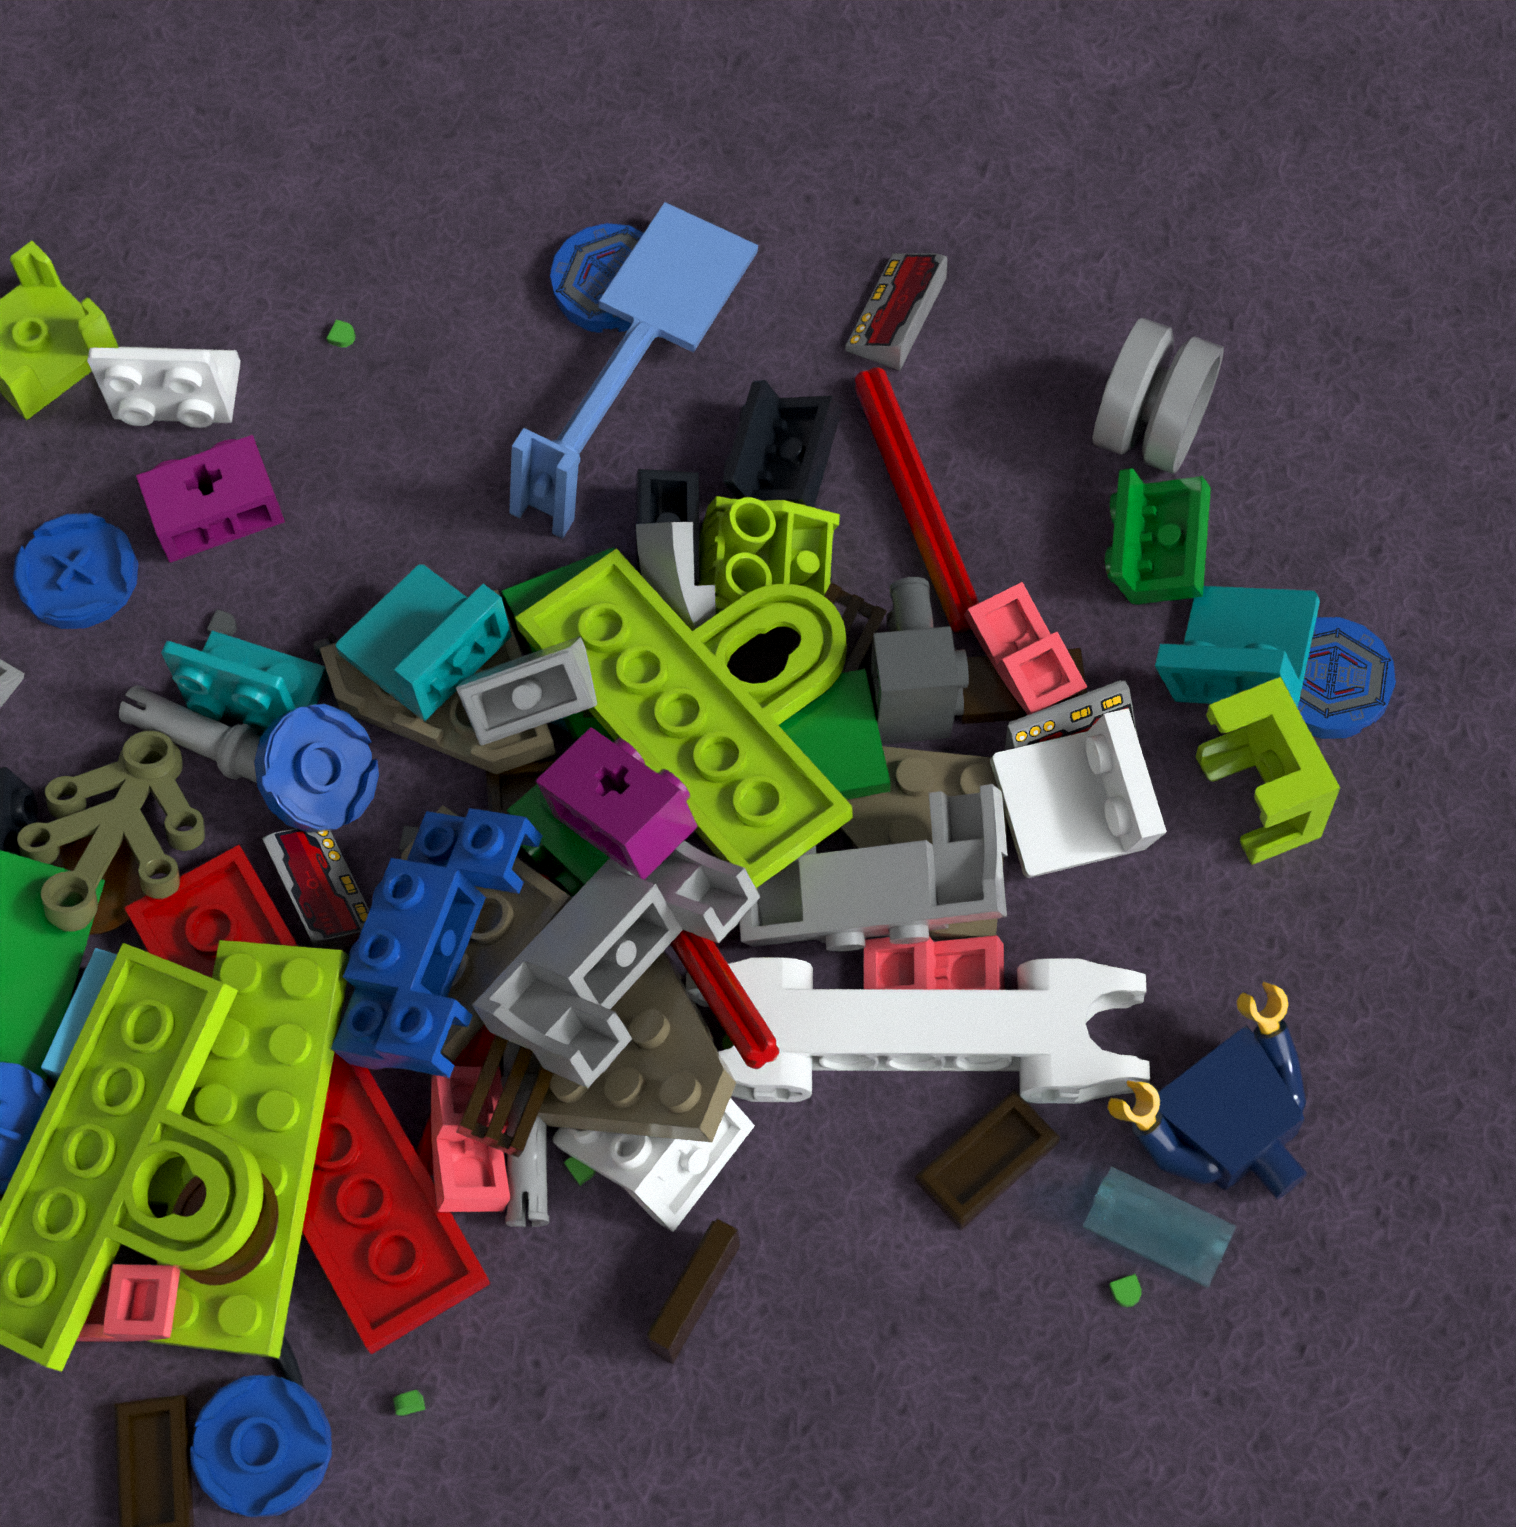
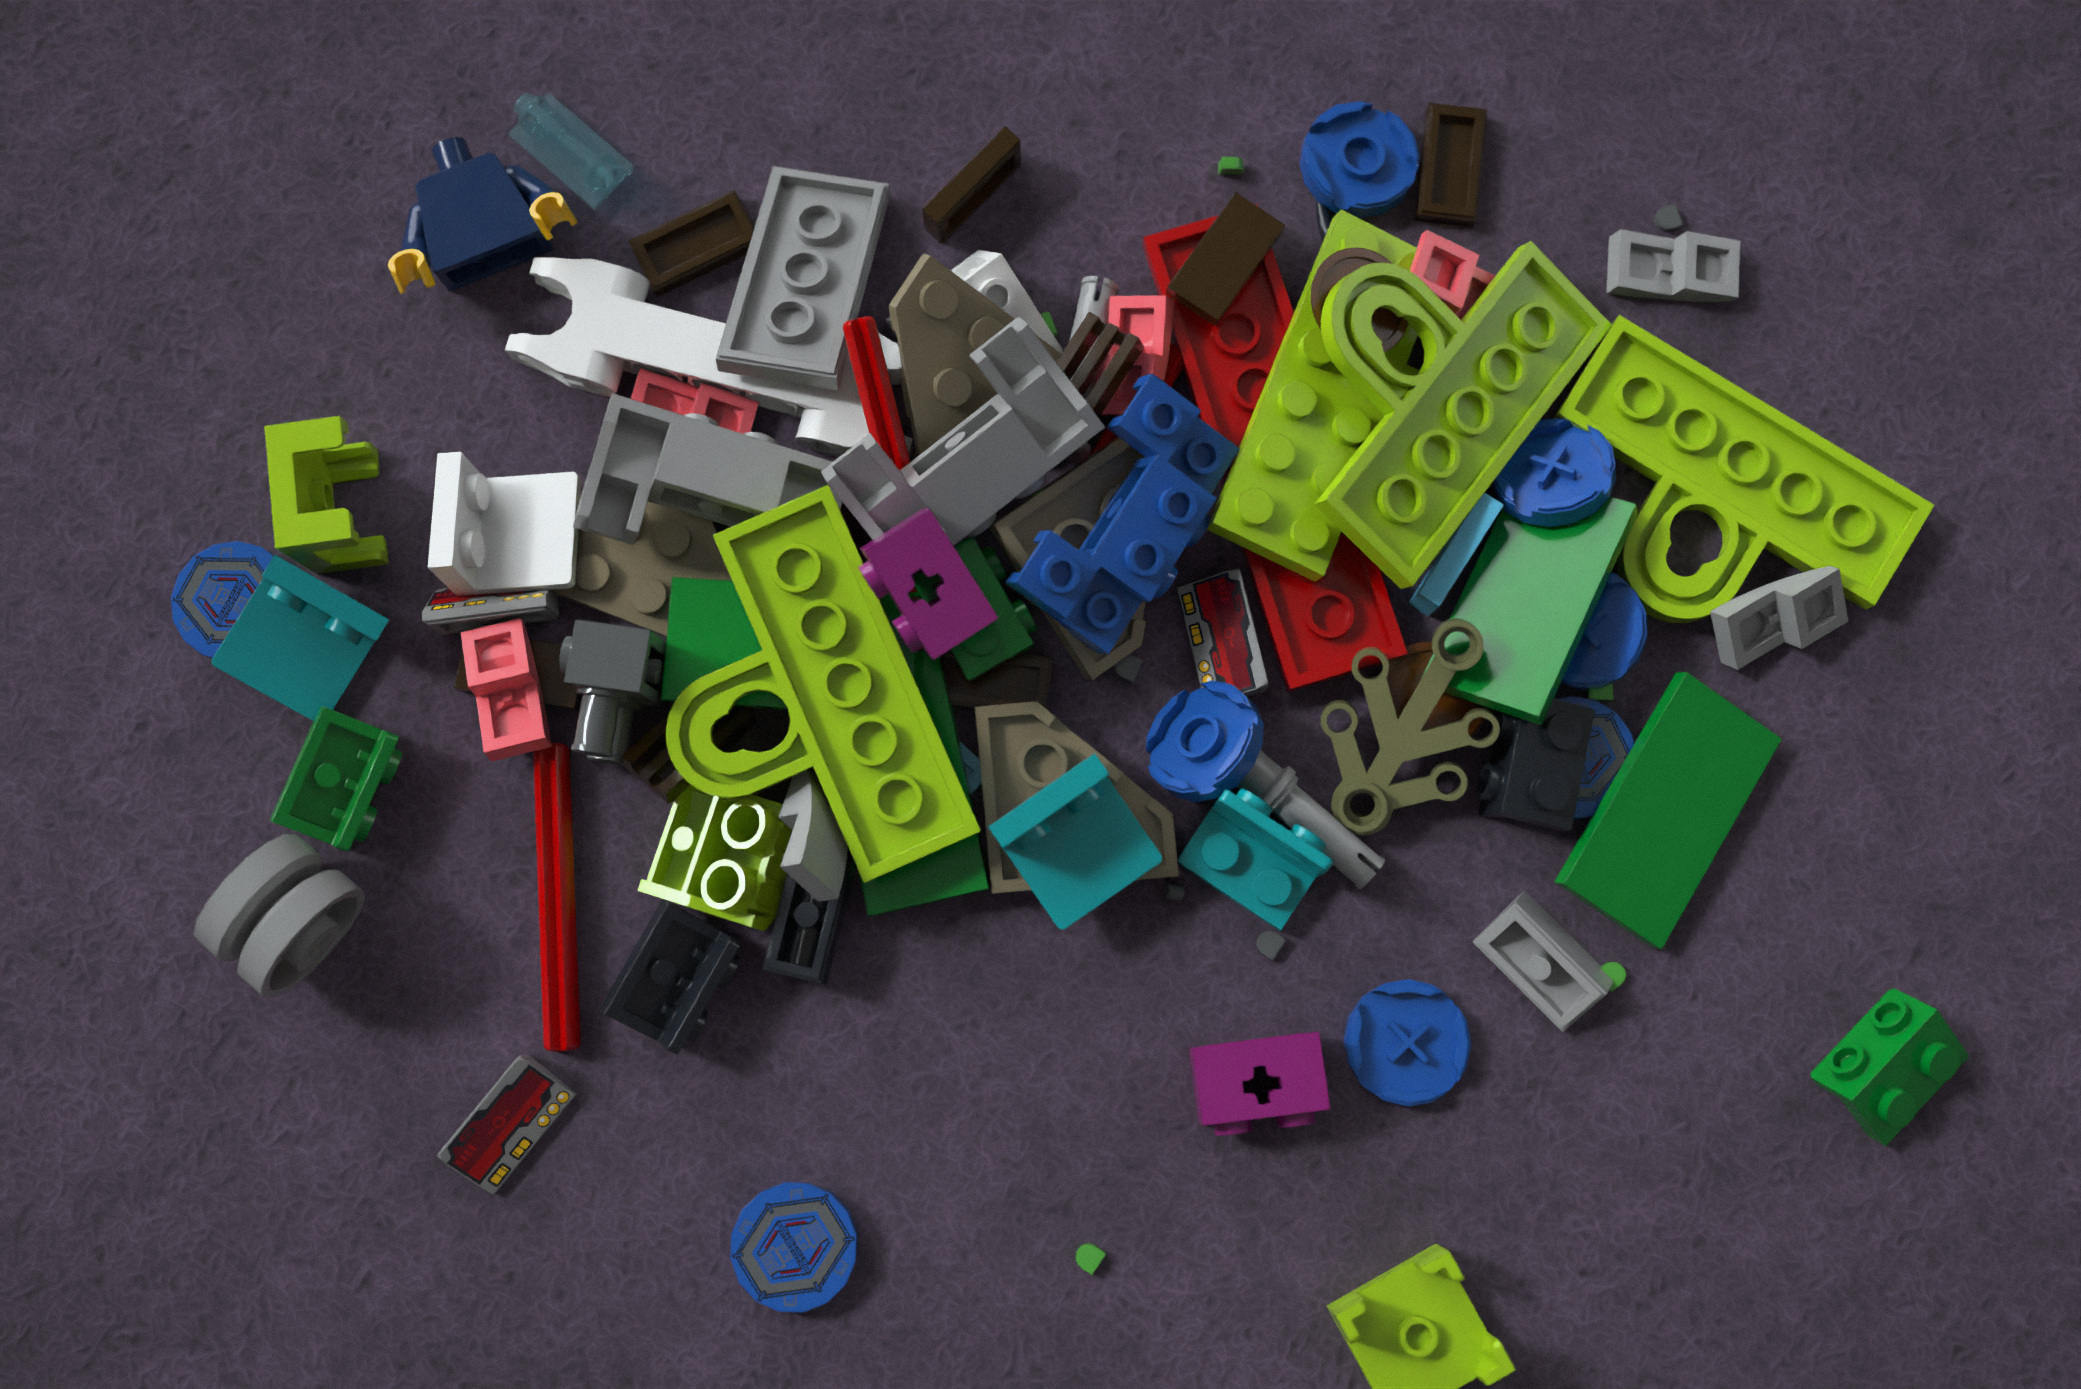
camera: 170 degrees left, 15 degrees up
(167, 384) = (1278, 1238): white bracket -> none
(388, 1265) = (1225, 259): none -> dark brown tile
(528, 691) = (984, 749): light grey slope -> none
(665, 290) = (737, 1194): medium blue piece -> none
(848, 1131) = (803, 278): none -> light grey tile
(1126, 1291) = (616, 111): bright green piece -> none

